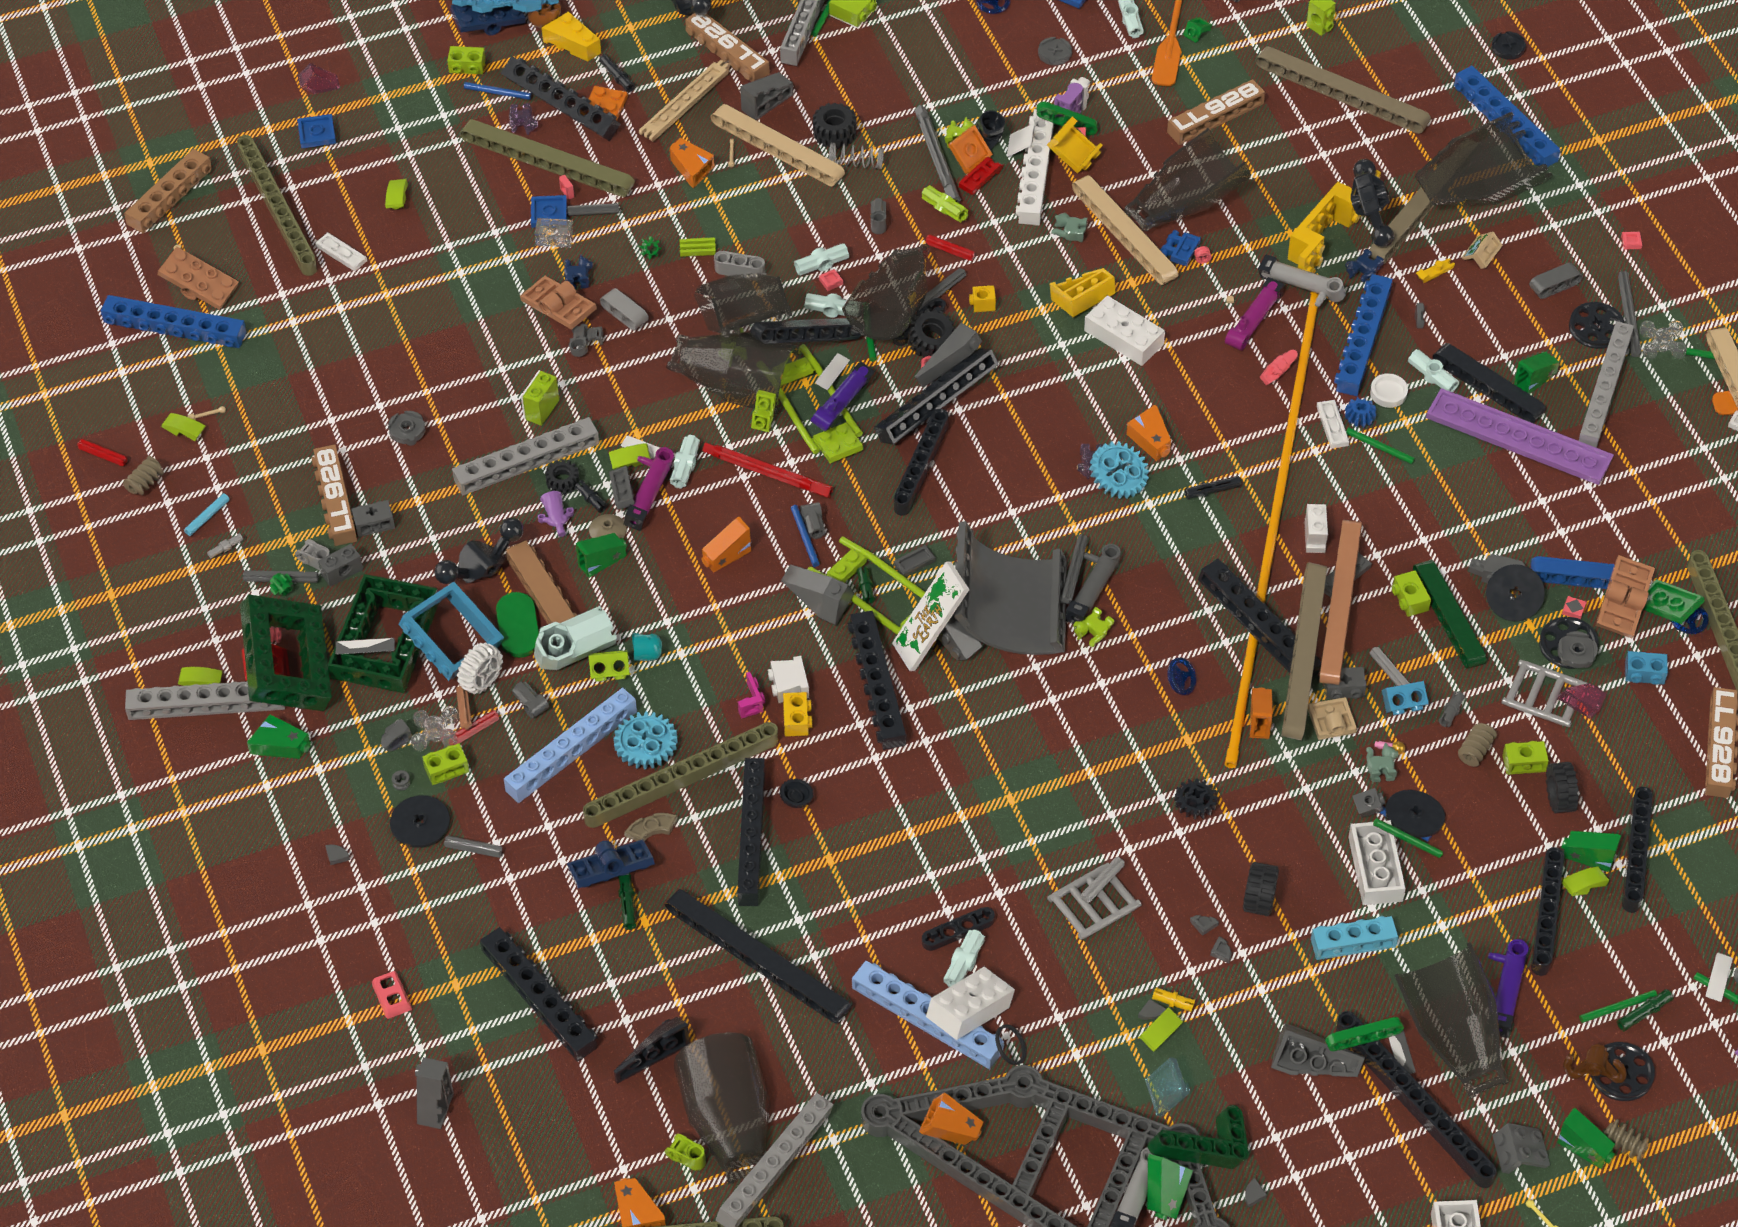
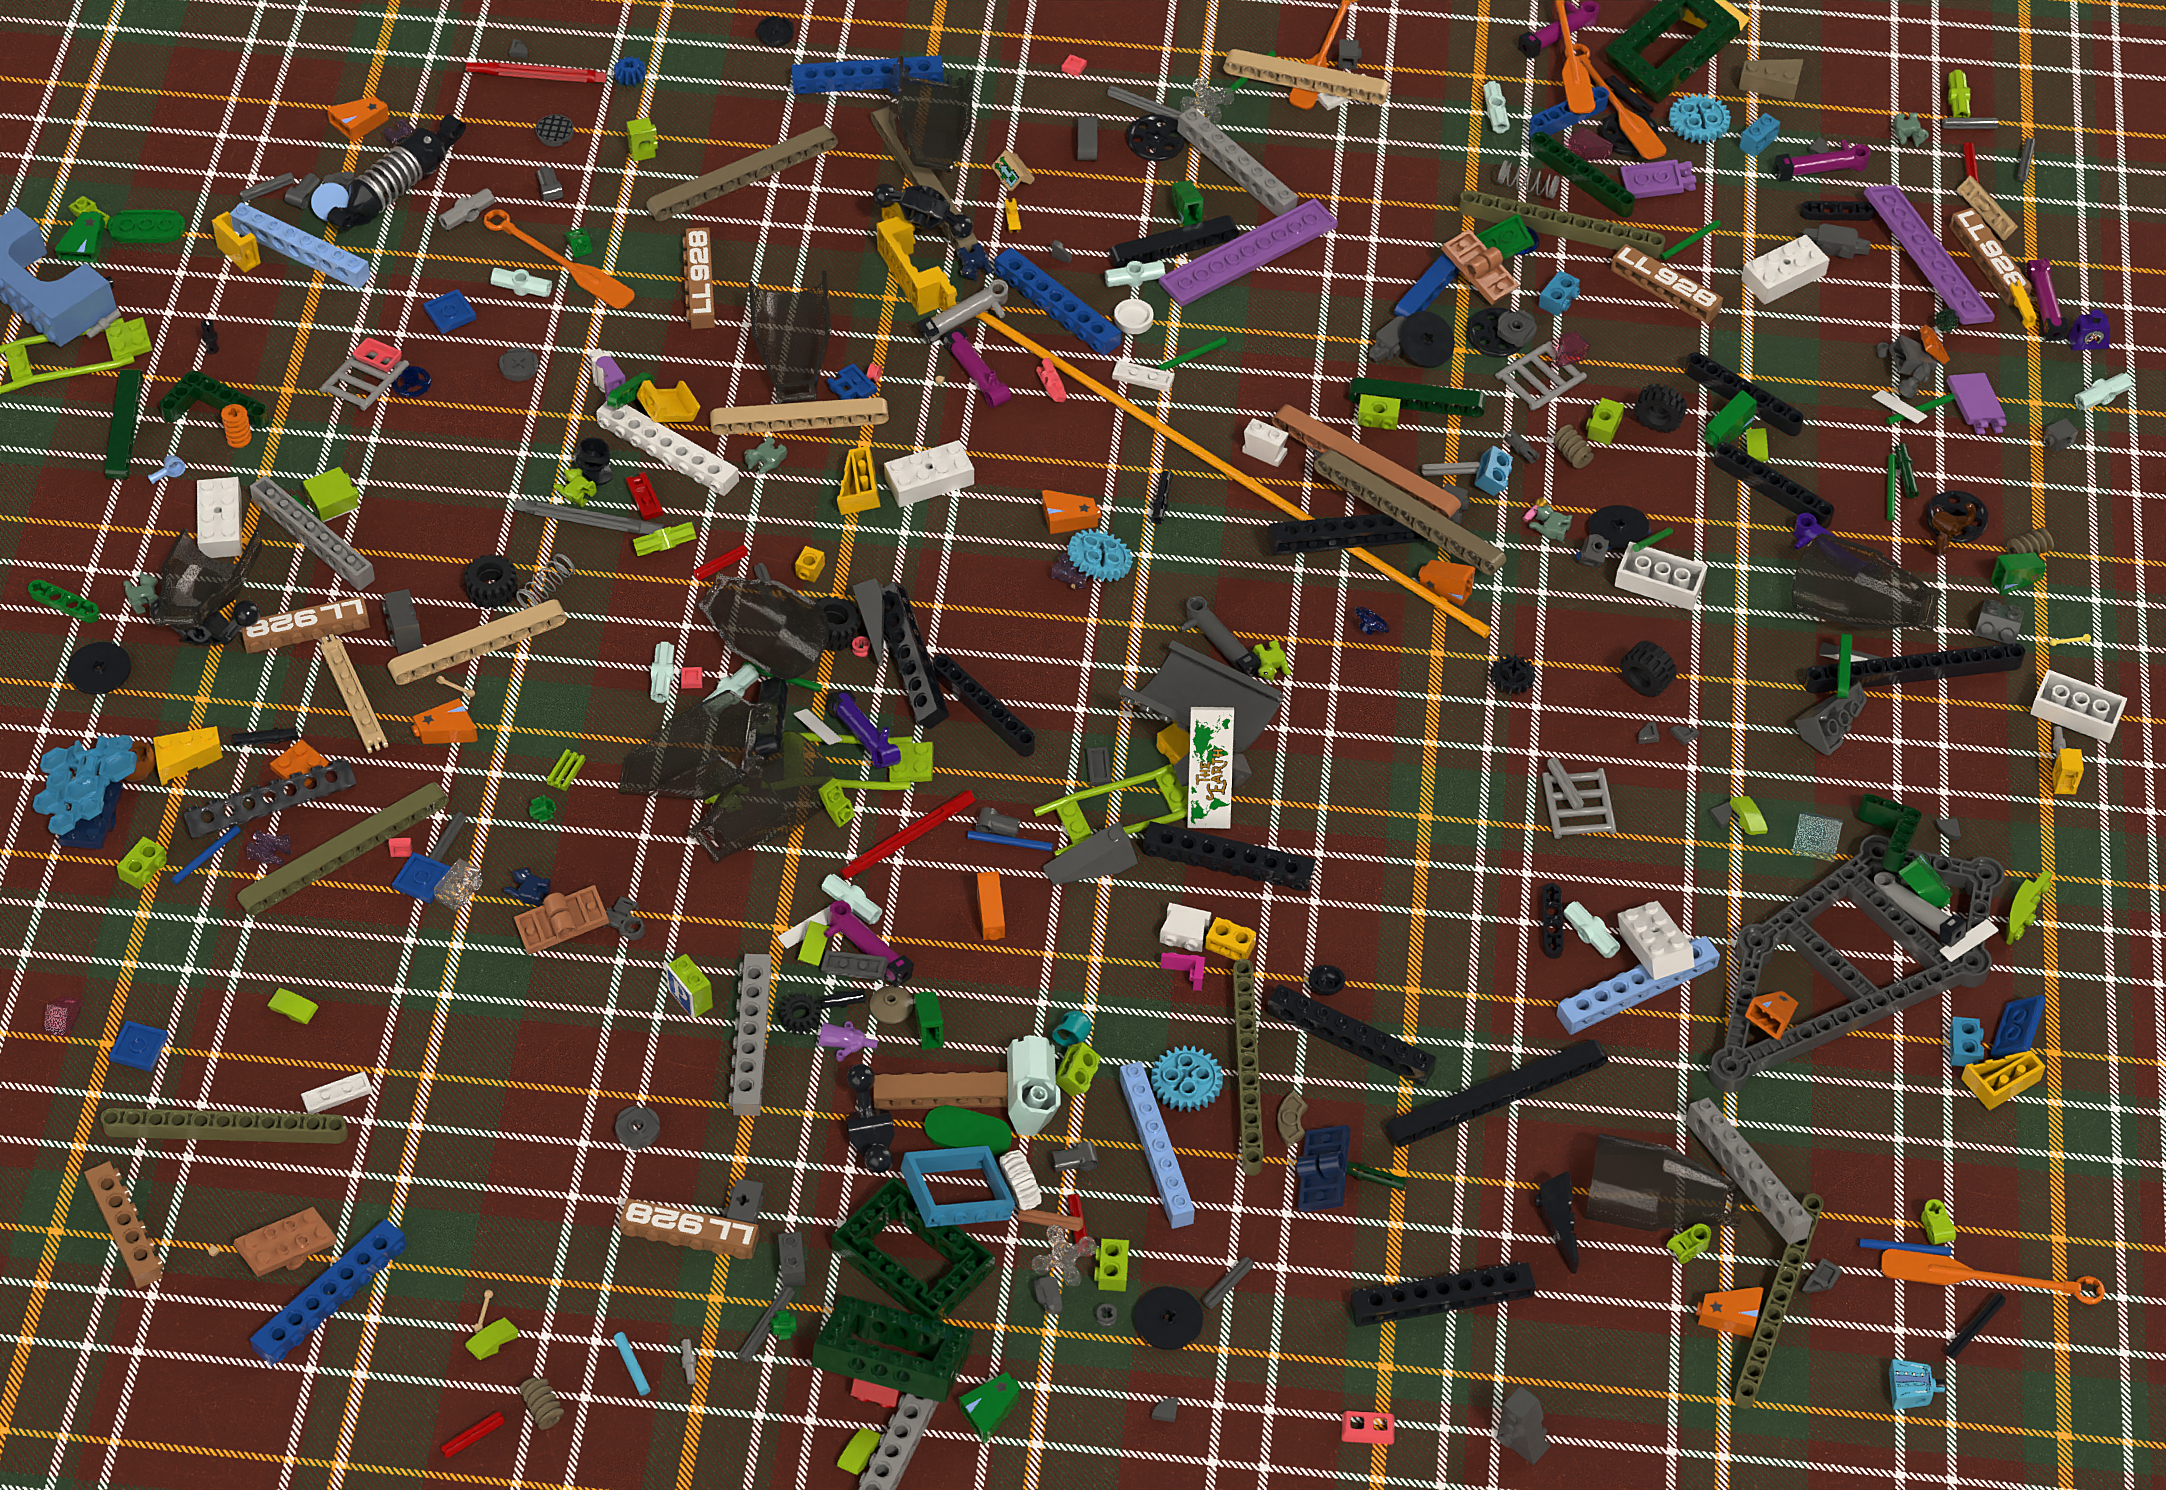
camera: 65 degrees left, 0 degrees up
(312, 553) = (757, 1280): light grey piece -> none
(363, 646) = (929, 1271): dark grey sticker -> none
(624, 309) = (609, 867): light grey beam -> none
(735, 263) = (630, 734): light grey beam -> none
(865, 585) = (1104, 817): dark green pin -> none
(878, 216) = (644, 601): dark grey piece -> none
(969, 149) = (609, 486): orange plate -> none
(997, 1039) = (1726, 940): black piece -> none
(1020, 140) = (624, 442): white sticker -> none
(1074, 569) = (1195, 642): dark grey axle -> none
(1173, 999) = (1720, 792): yellow pin -> none
(1324, 947) = (1727, 631): medium azure brick -> none
(1332, 718) = (1485, 528): tan plate -> none
(1360, 412) = (1147, 348): blue gear -> none
(1574, 607) = (1461, 310): coral tile -> none

